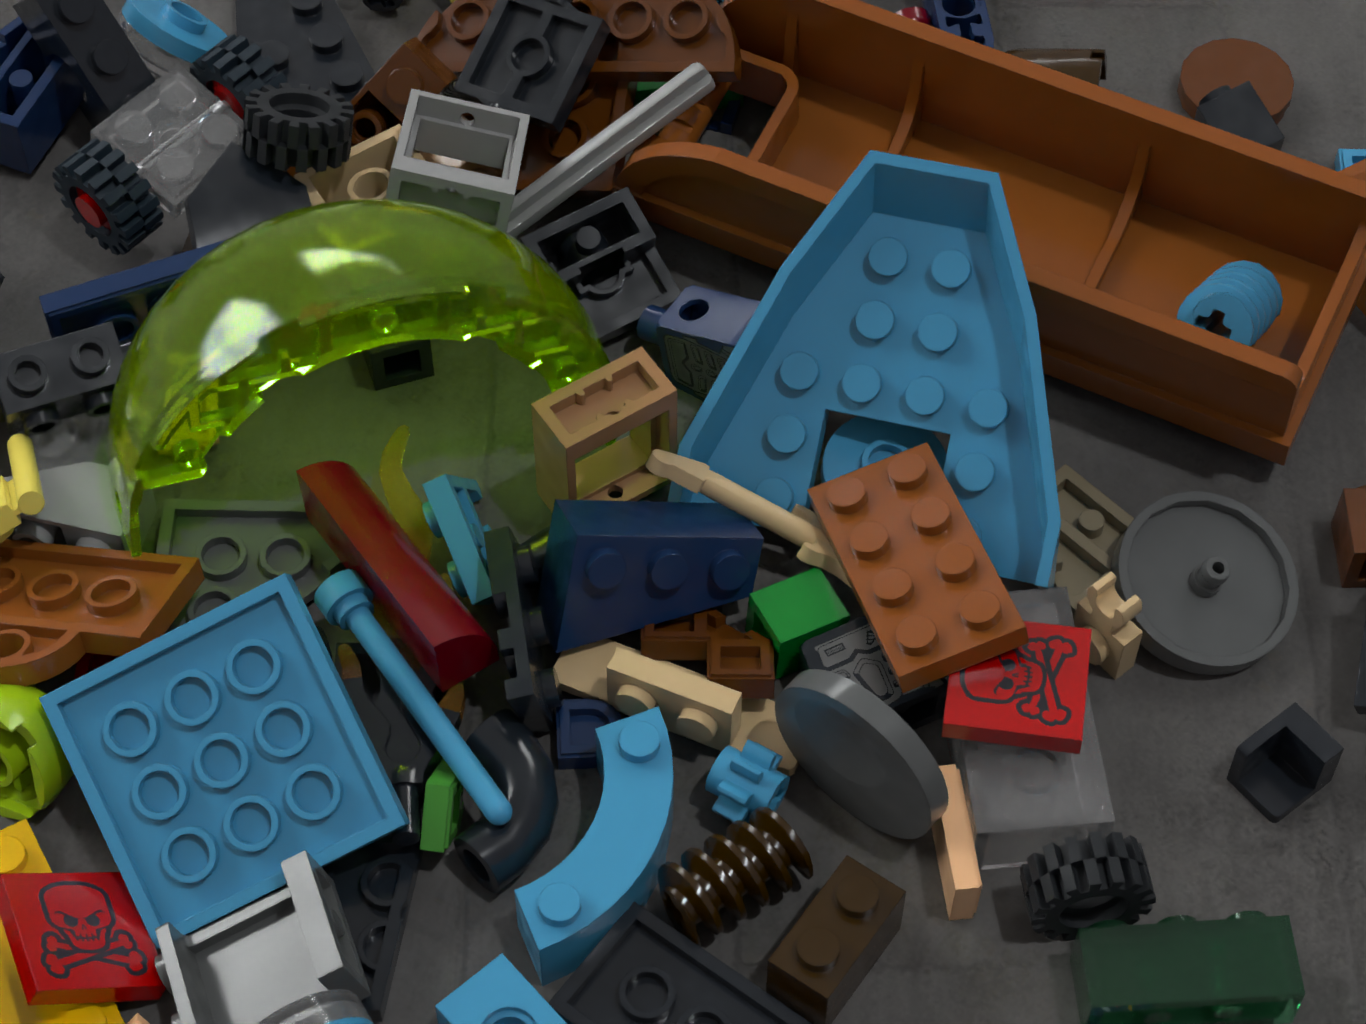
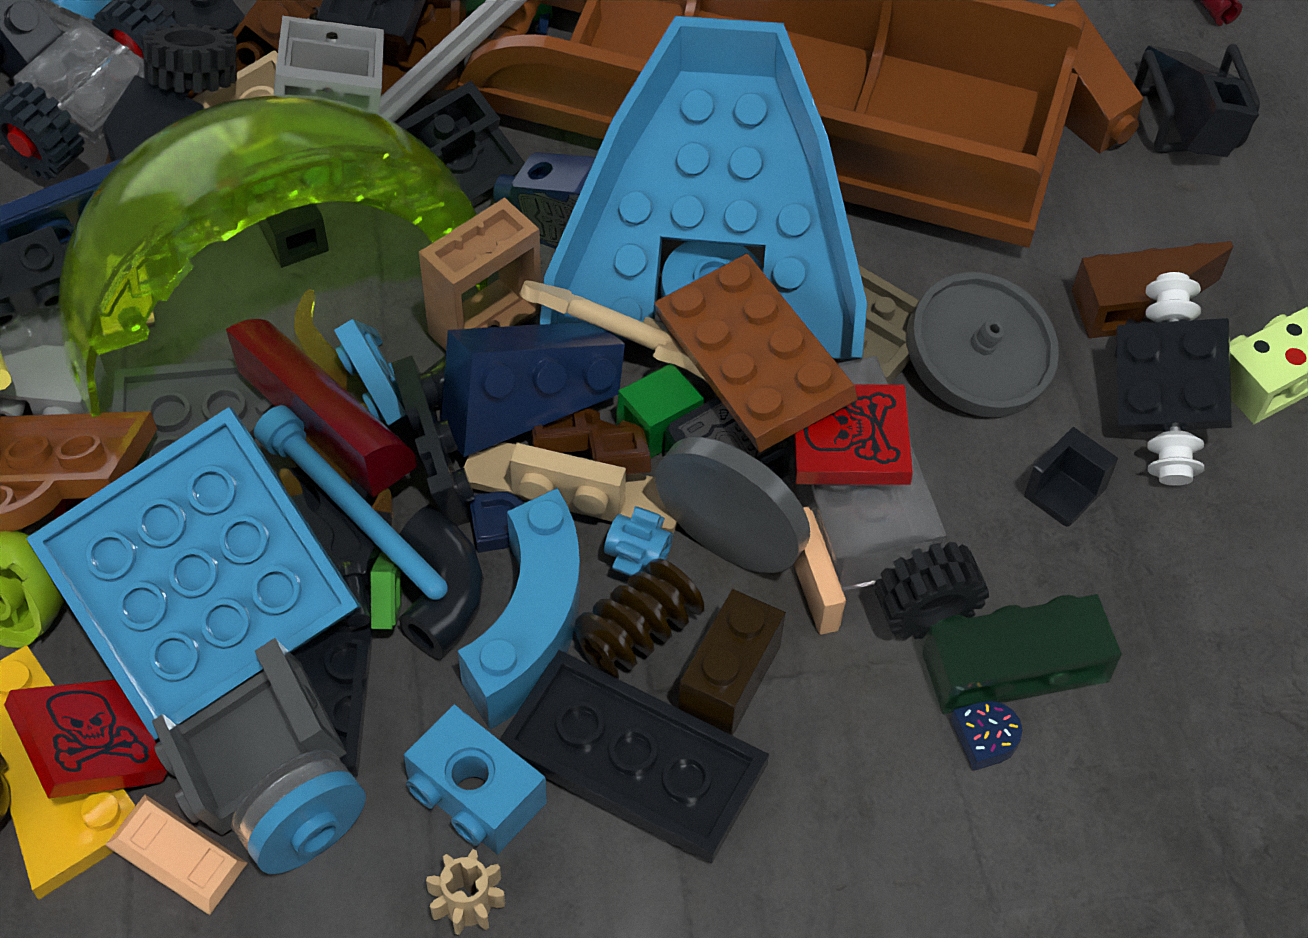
camera: 10 degrees left, 0 degrees up
(1113, 634) = (920, 389): tan plate -> none
(1235, 302) = (984, 111): dark azure piece -> none

